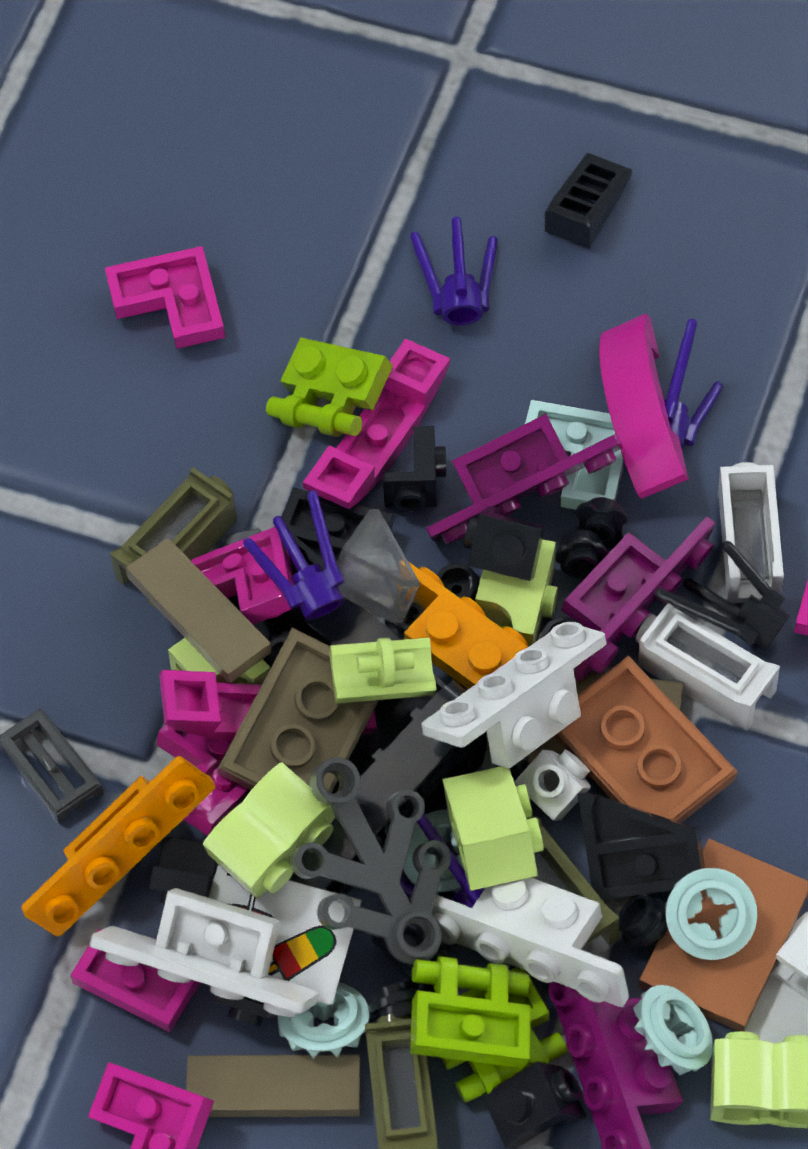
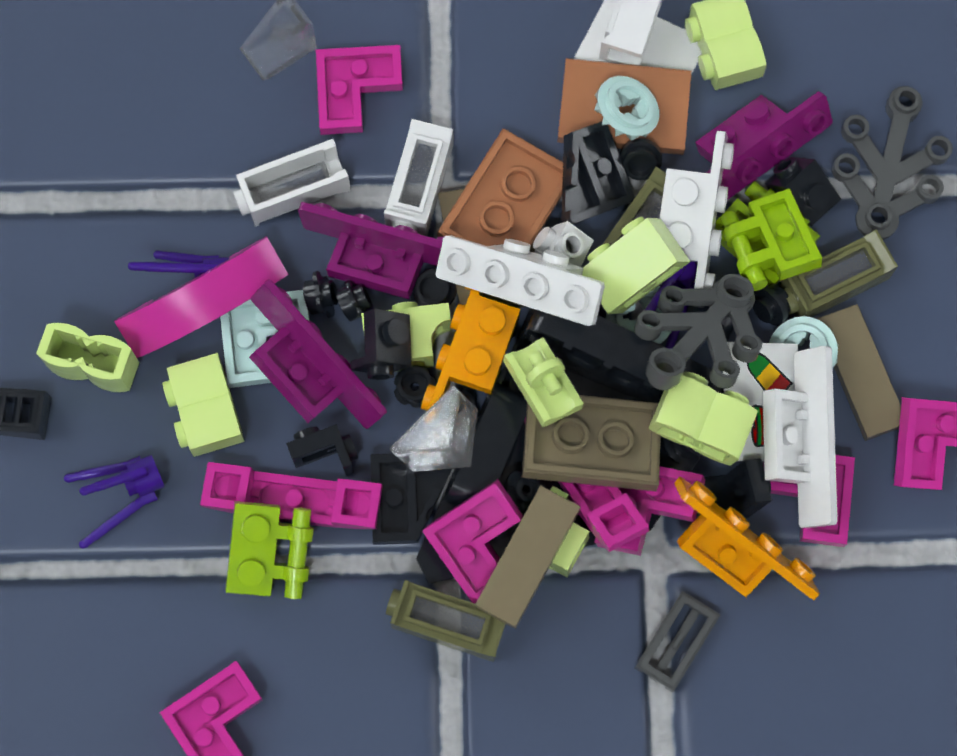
camera: 115 degrees left, 15 degrees up
(314, 589) = (485, 465): dark purple plant -> none
(509, 373) = (203, 405): none -> yellowish green brick
(610, 274) = (77, 356): none -> yellowish green brick
(670, 1011) = (731, 99): light aqua gear -> none
(754, 622) = (369, 151): black plant -> none

